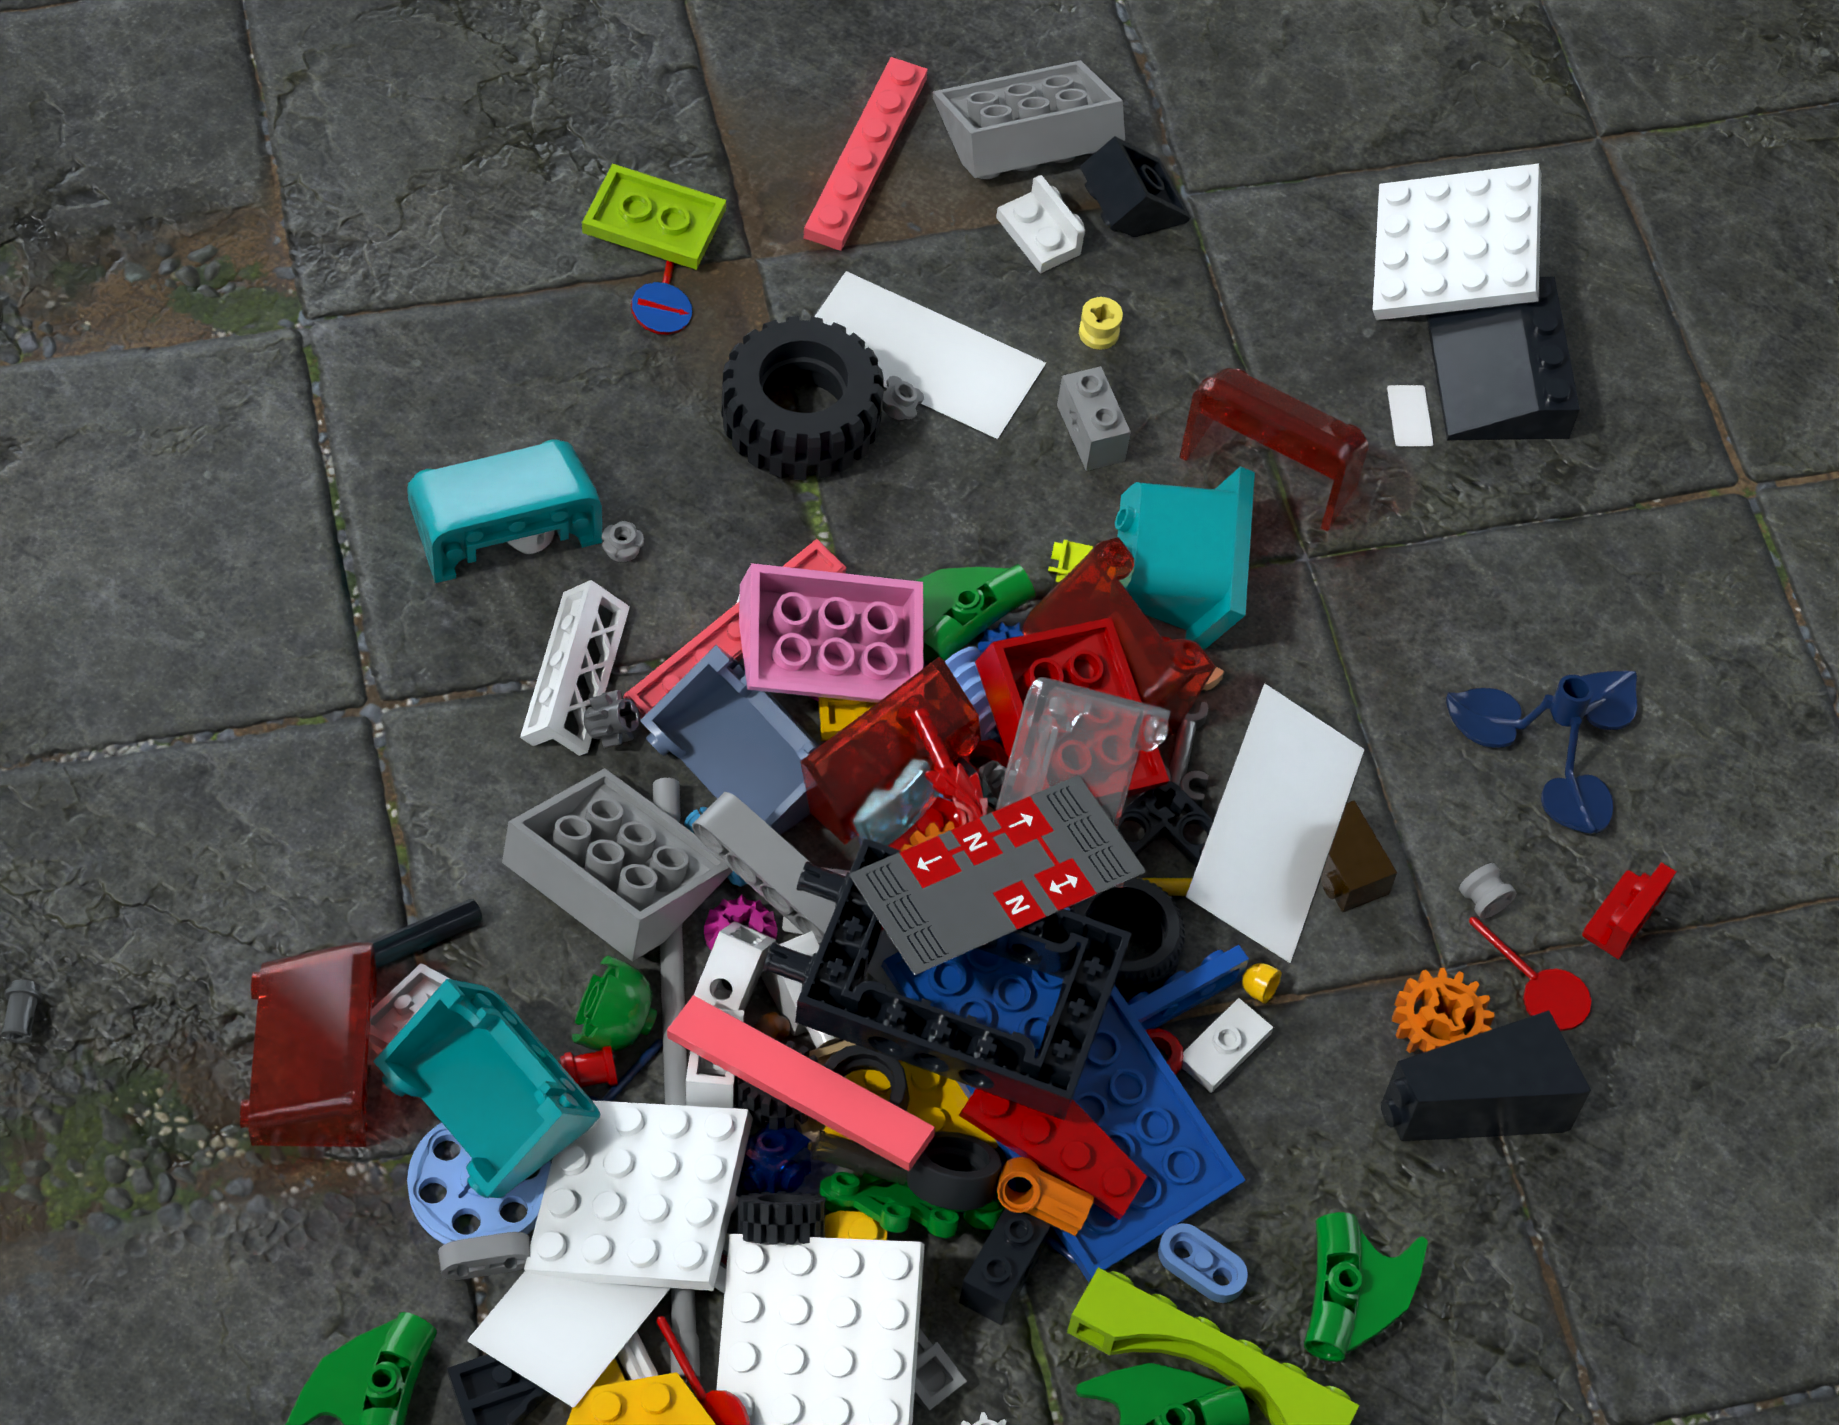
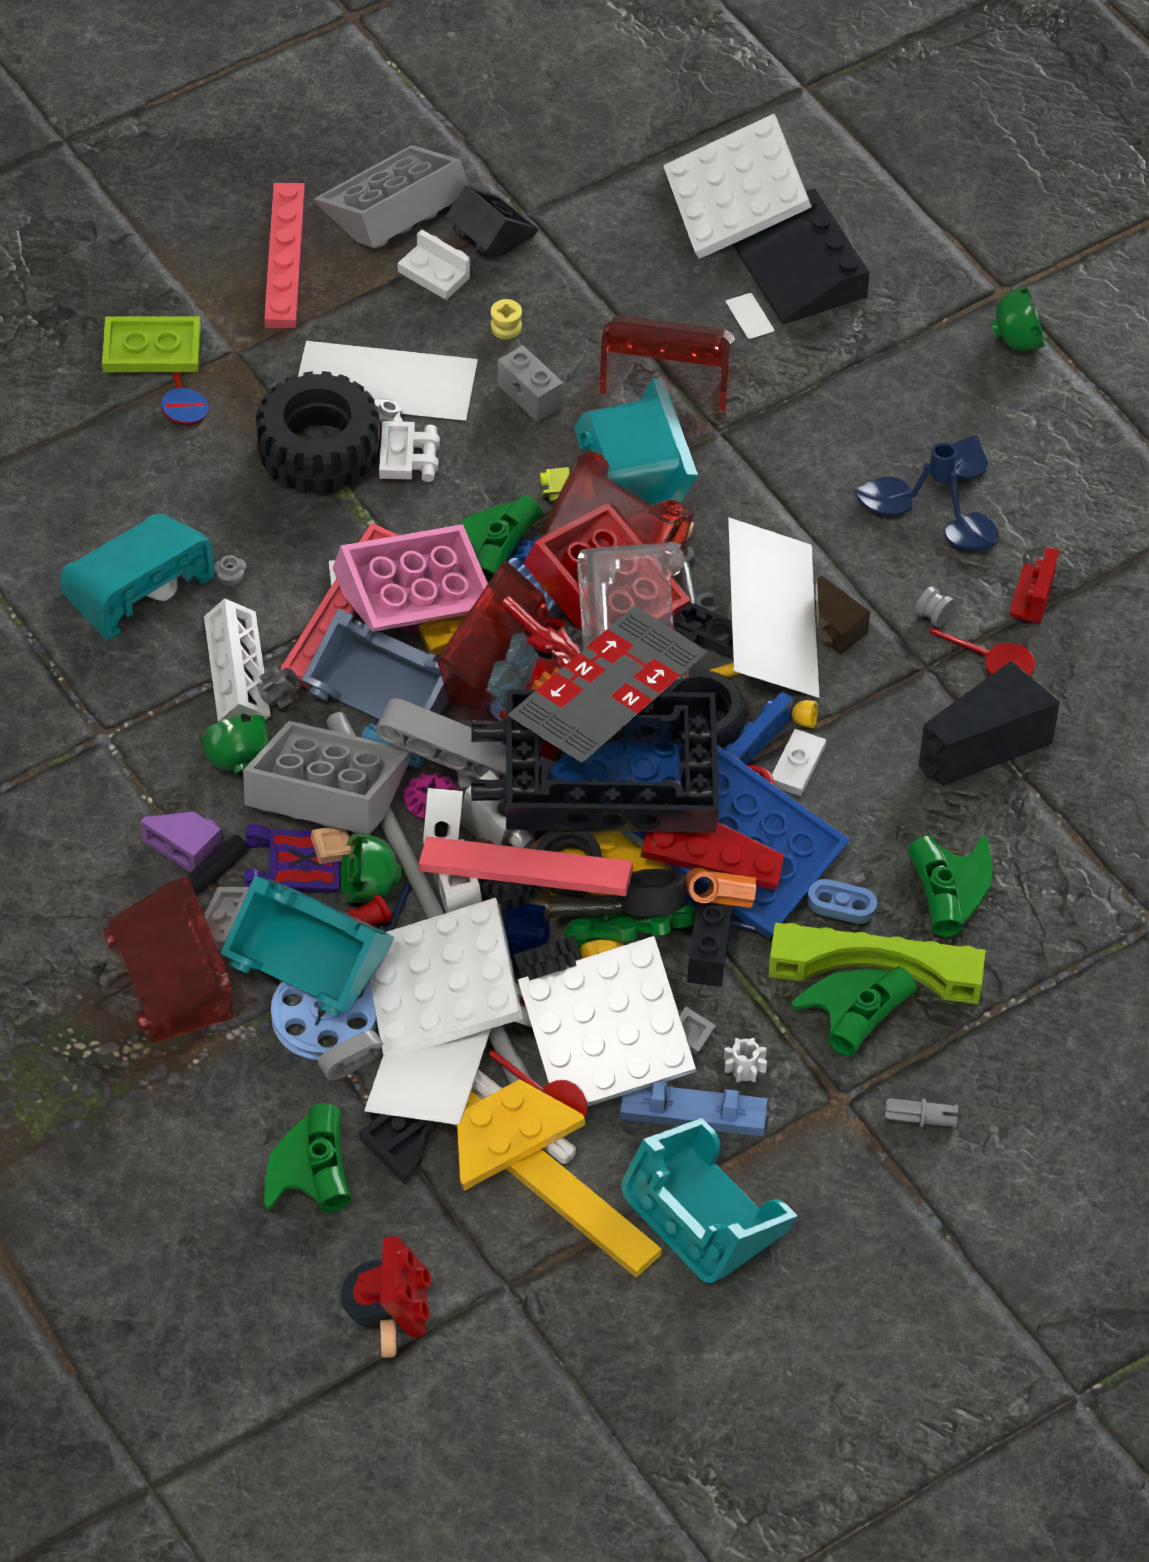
camera: 15 degrees left, 5 degrees down
(407, 881) = (182, 837): none -> medium lavender slope
(521, 780) = (234, 743): none -> green cylinder
(539, 960) = (292, 860): none -> dark purple flag
(584, 954) = (330, 844): none -> light nougat tile
(894, 450) = (397, 451): none -> white plate
(1443, 1013) = (937, 691): orange gear -> none
(1748, 537) = (1018, 322): none -> green cylinder

